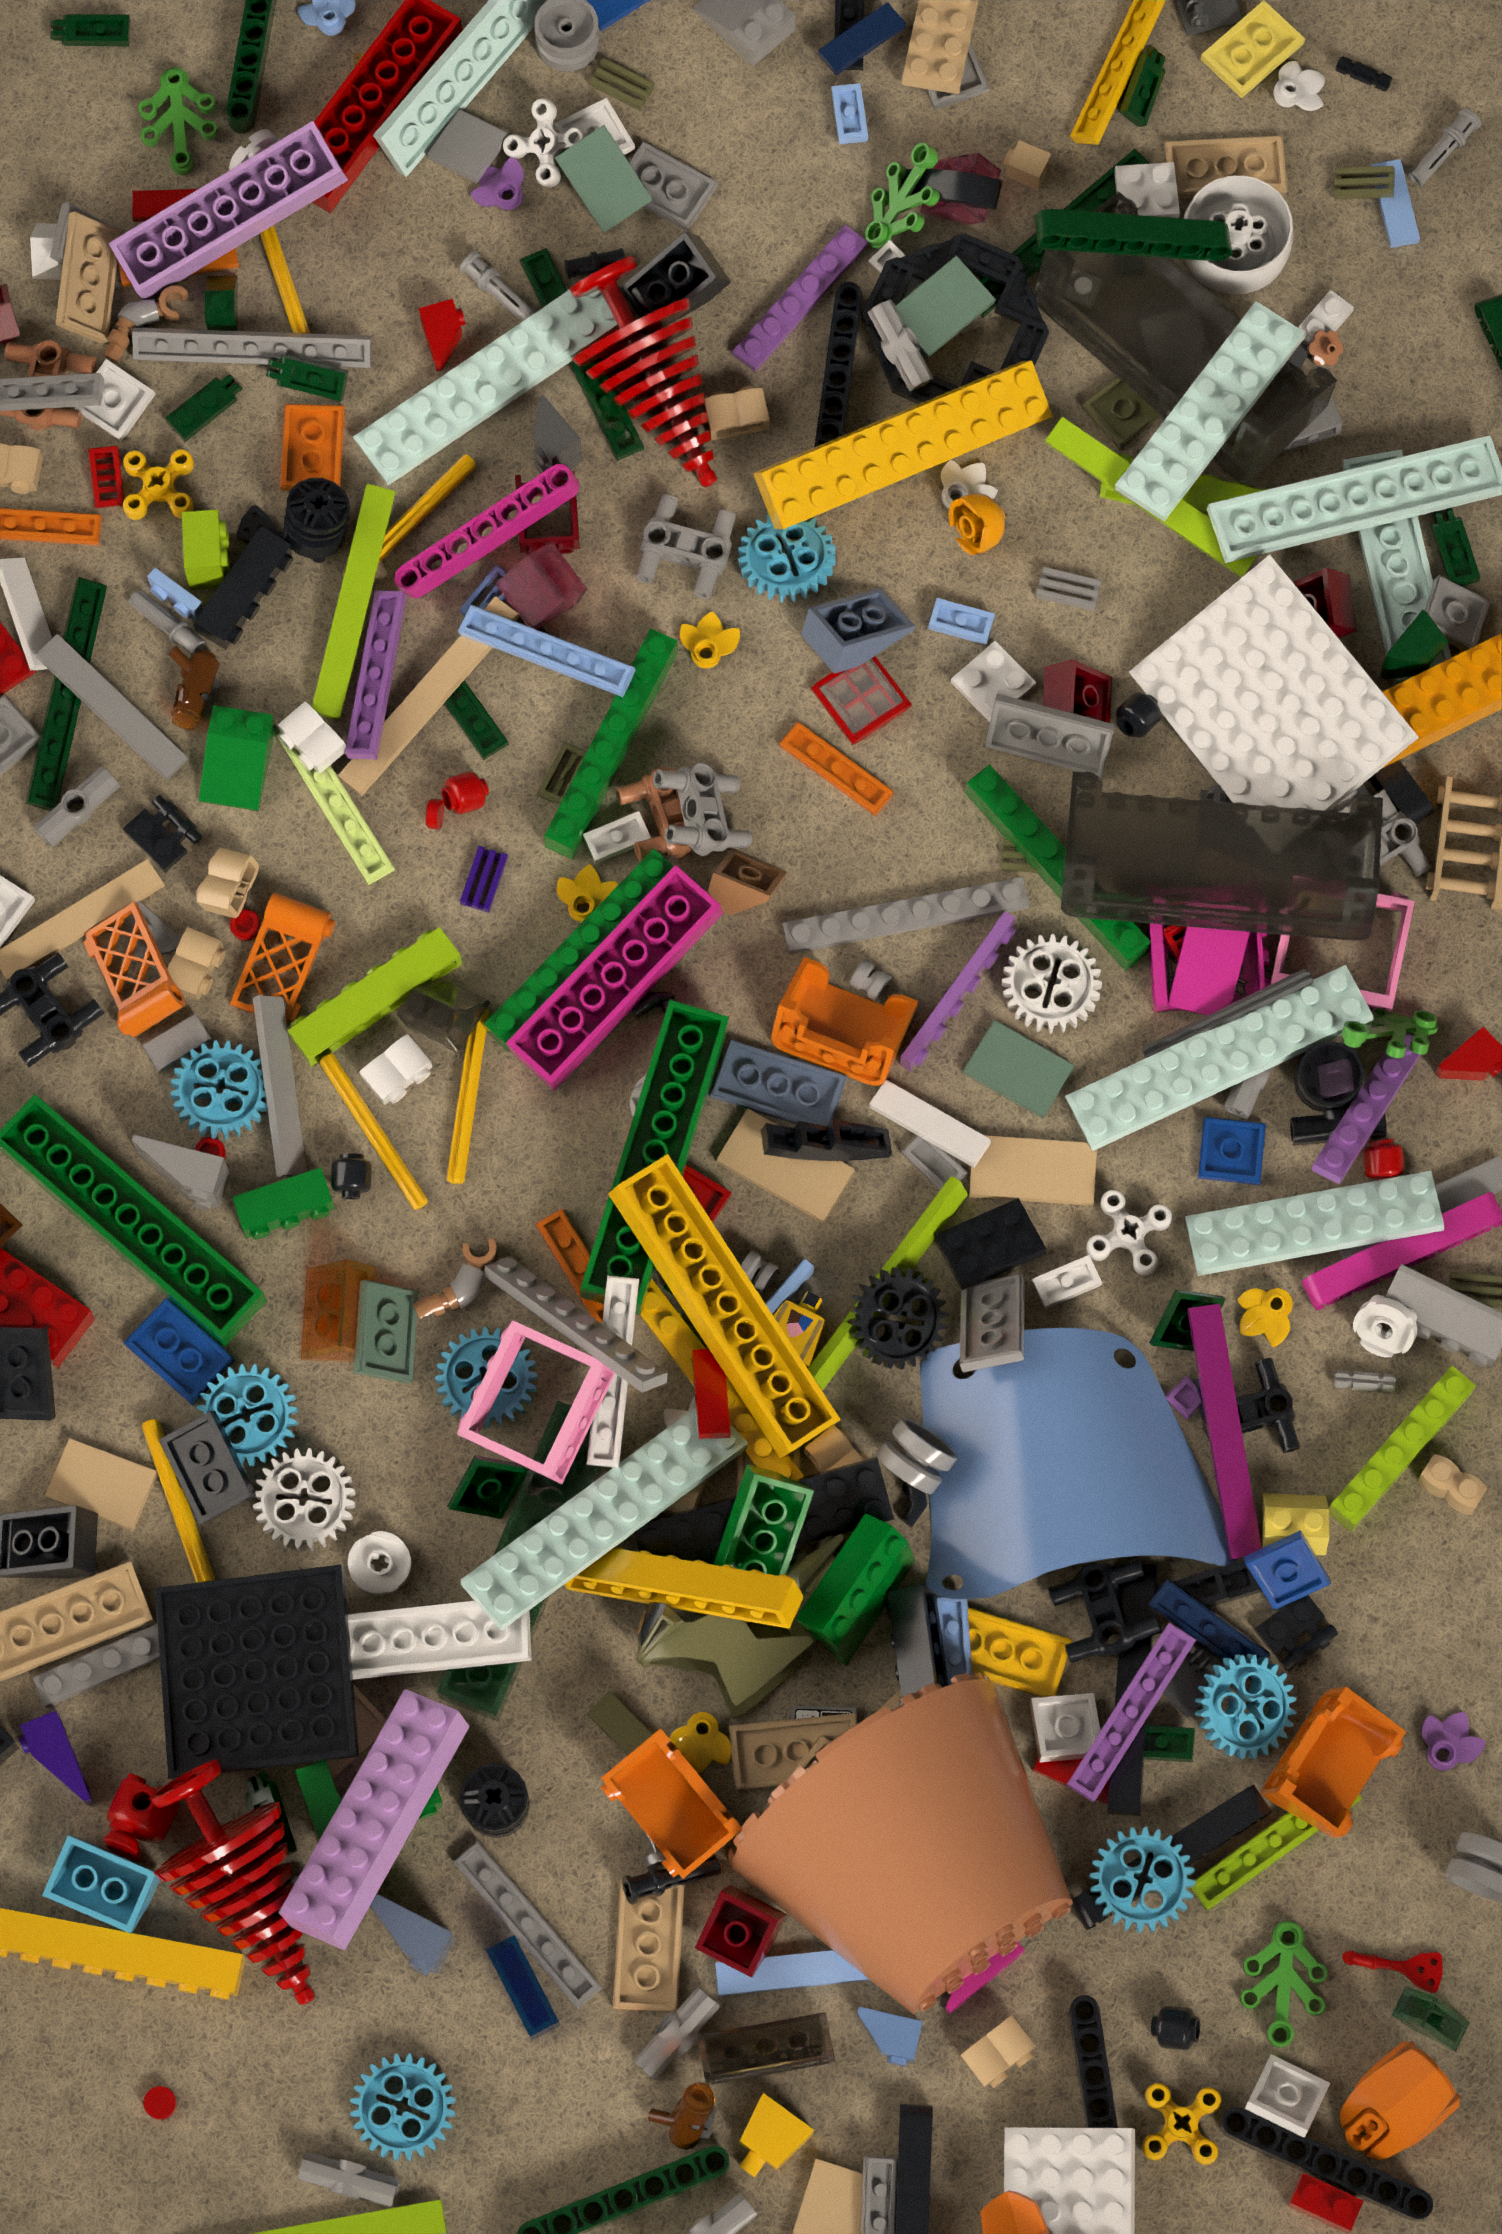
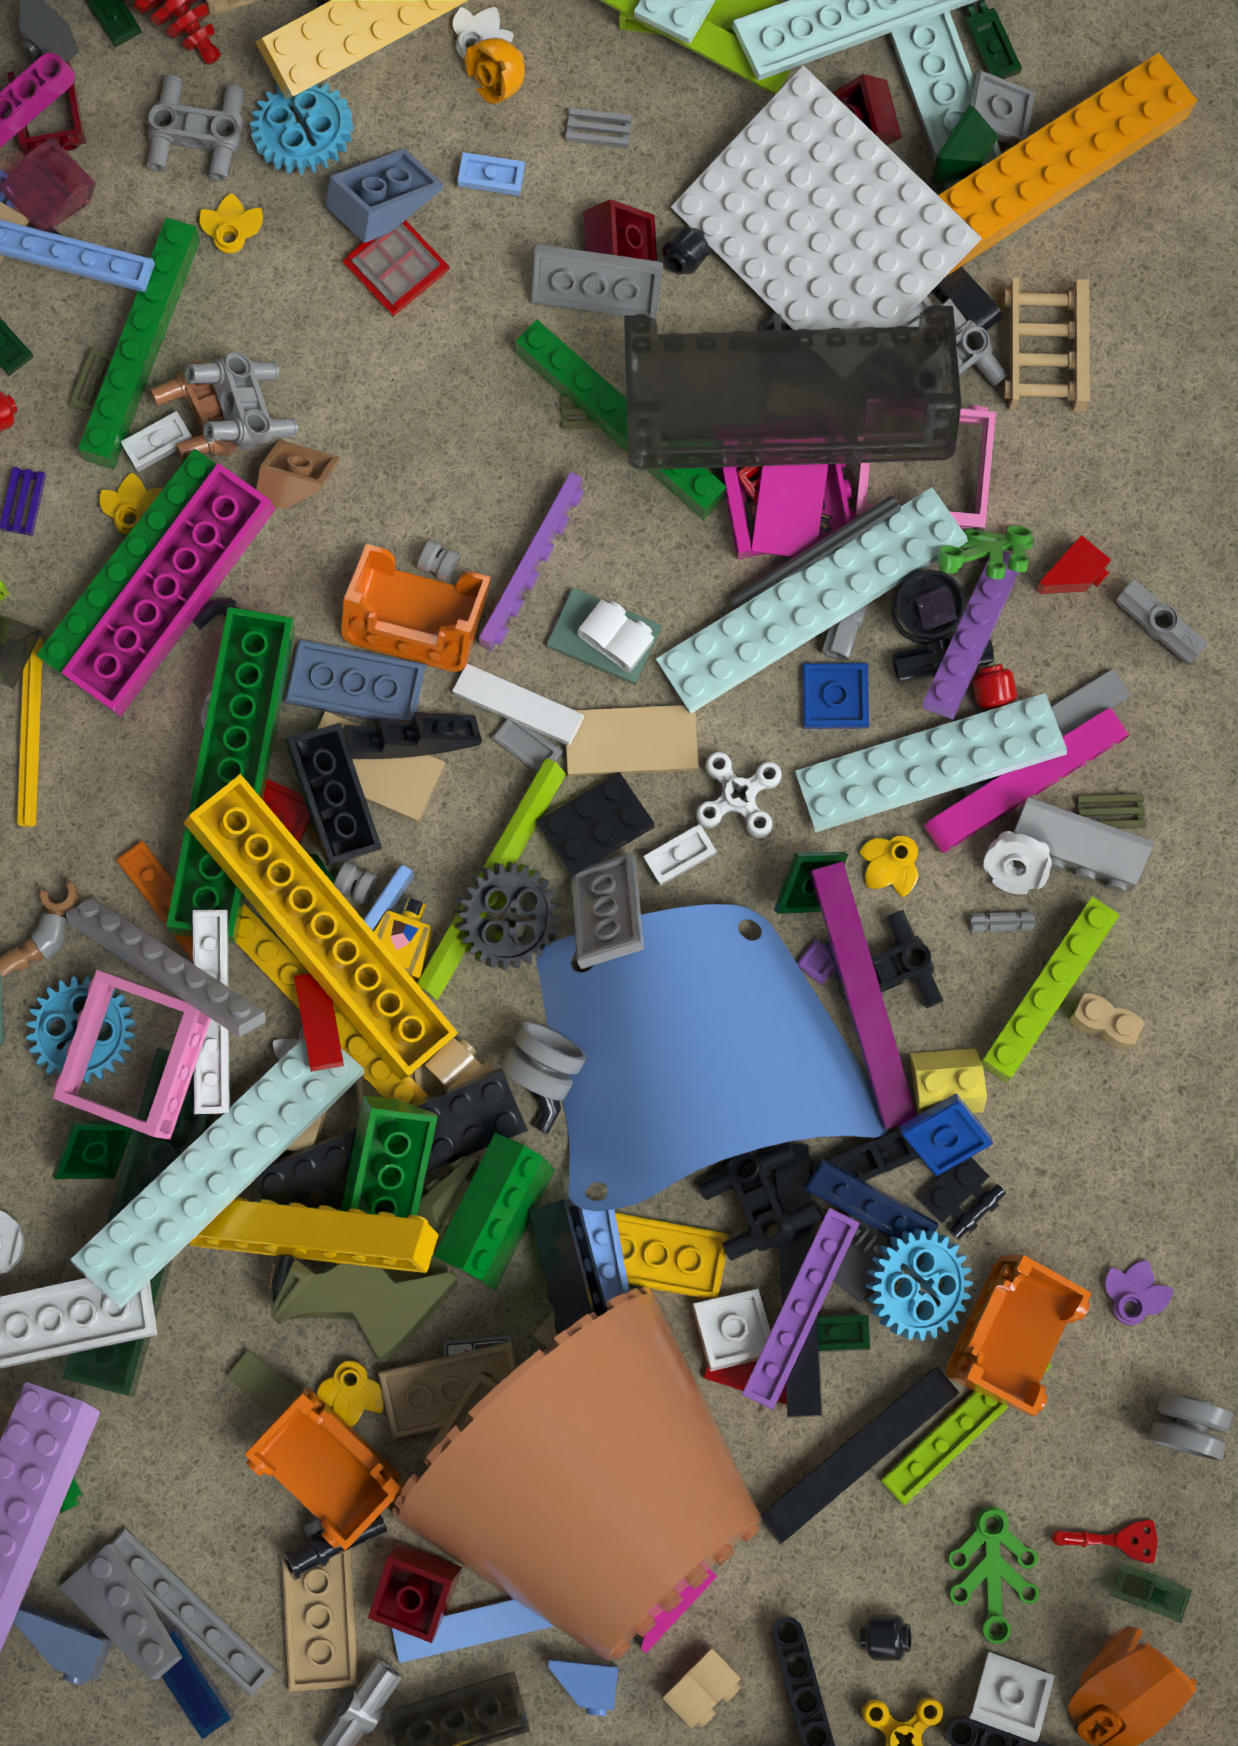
camera: 10 degrees left, 5 degrees up
(467, 1910) = (119, 1608): none -> light grey wing
(495, 1819) = (158, 1485): black wheel -> none
(748, 1185) = (333, 794): none -> black slope
(836, 768) = (379, 342): orange tile -> none
(905, 915) = (468, 488): light grey plate -> none
(992, 674) = (530, 224): white plate -> none
(1025, 976) = (600, 537): white gear -> none
(1030, 1069) = (616, 635): none -> white brick
(1169, 1889) = (864, 1494): medium azure gear -> none

